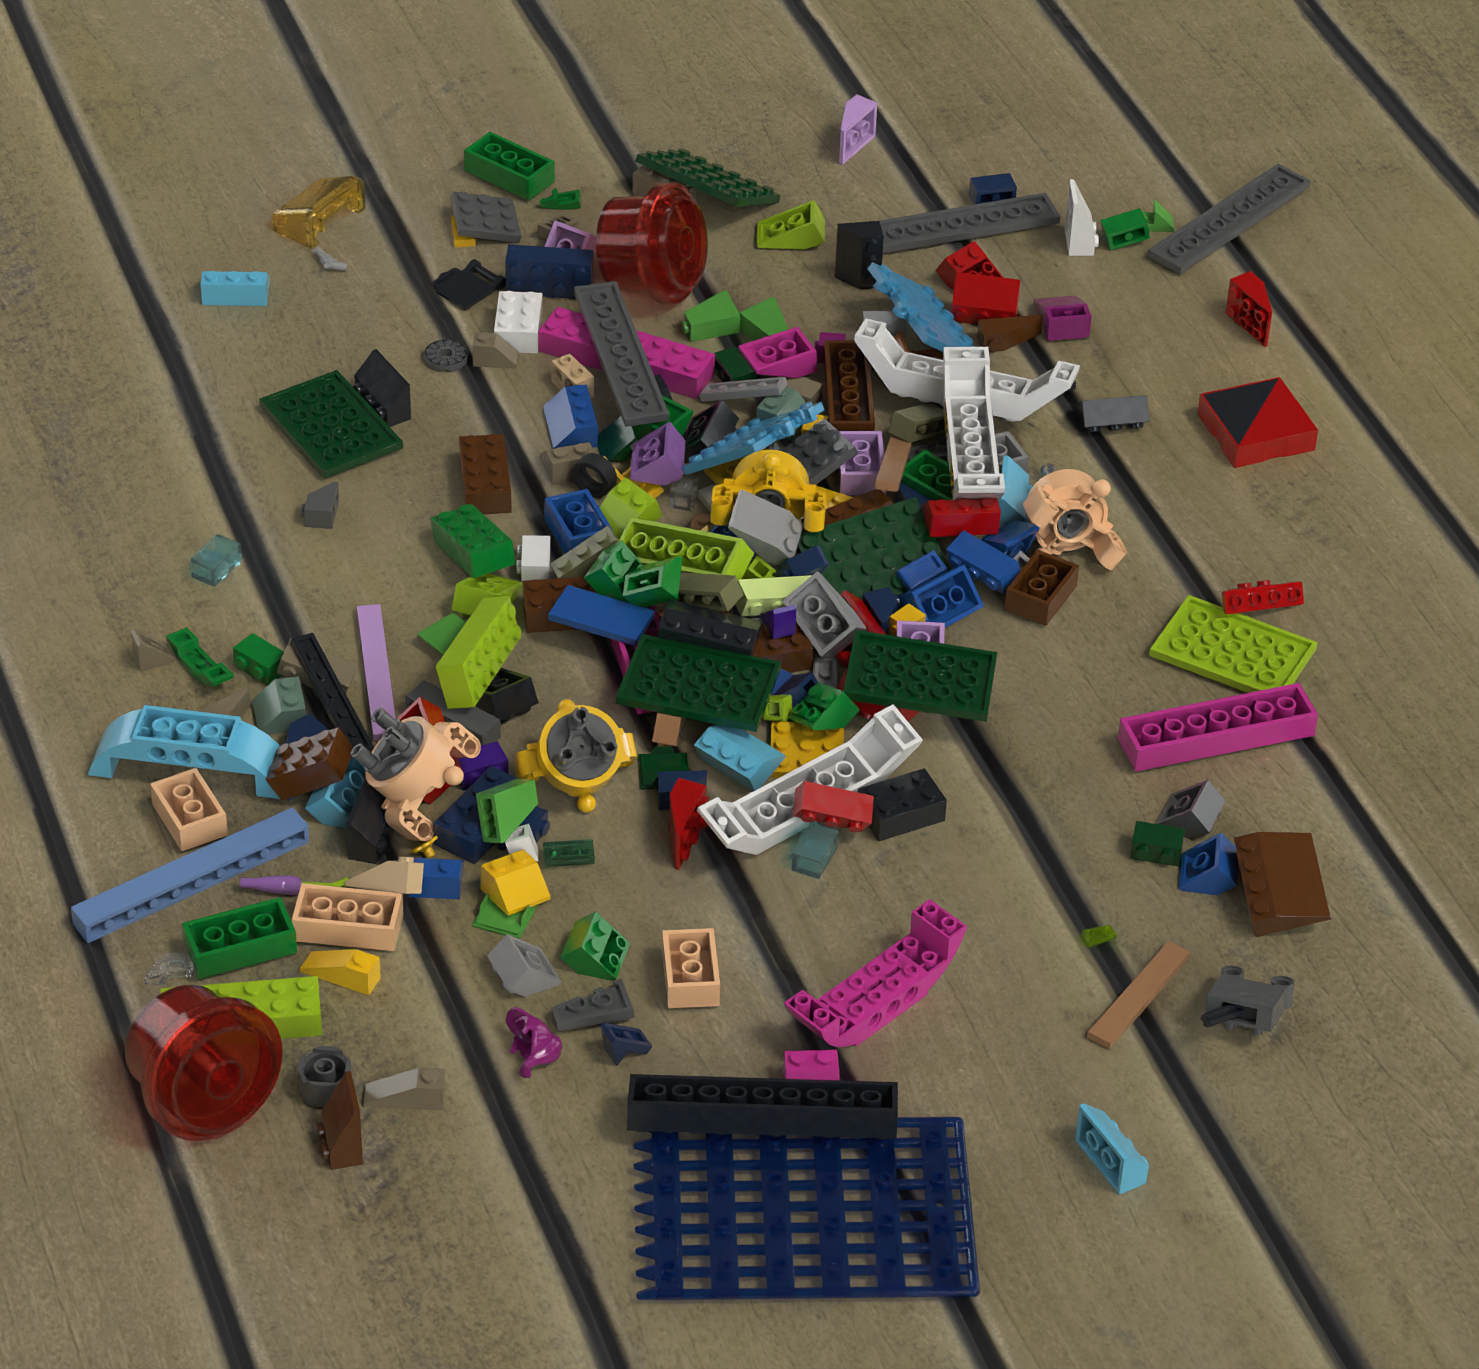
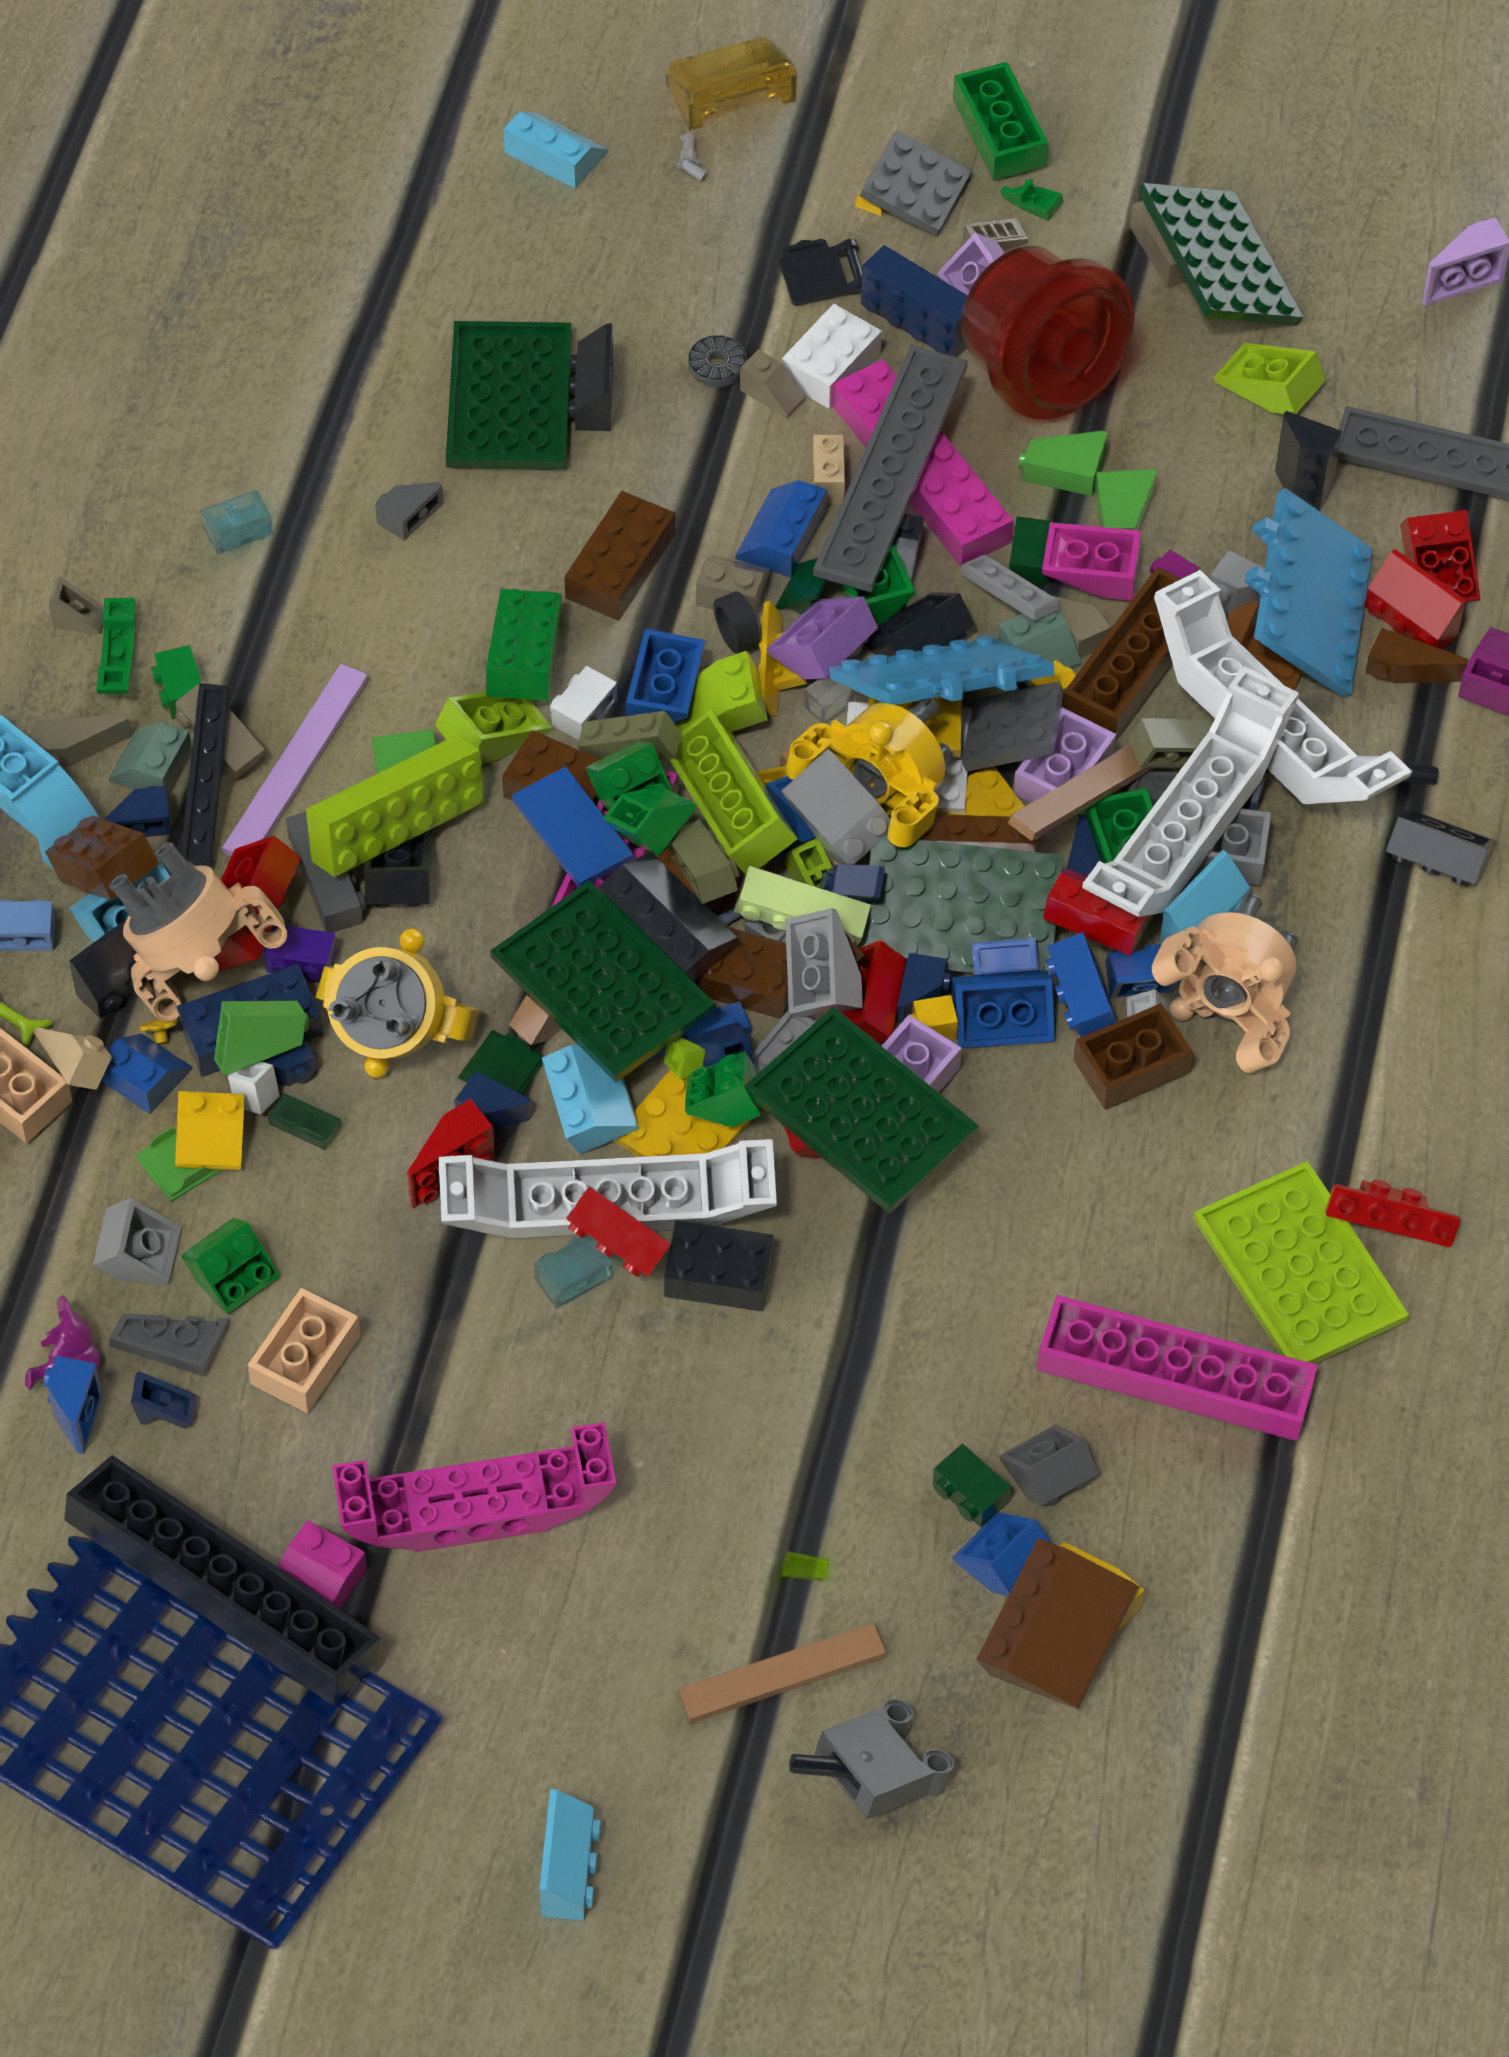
camera: 35 degrees right, 15 degrees up
(568, 1065) = (74, 1398): none -> blue slope
(780, 621) = (763, 944): dark purple slope -> none

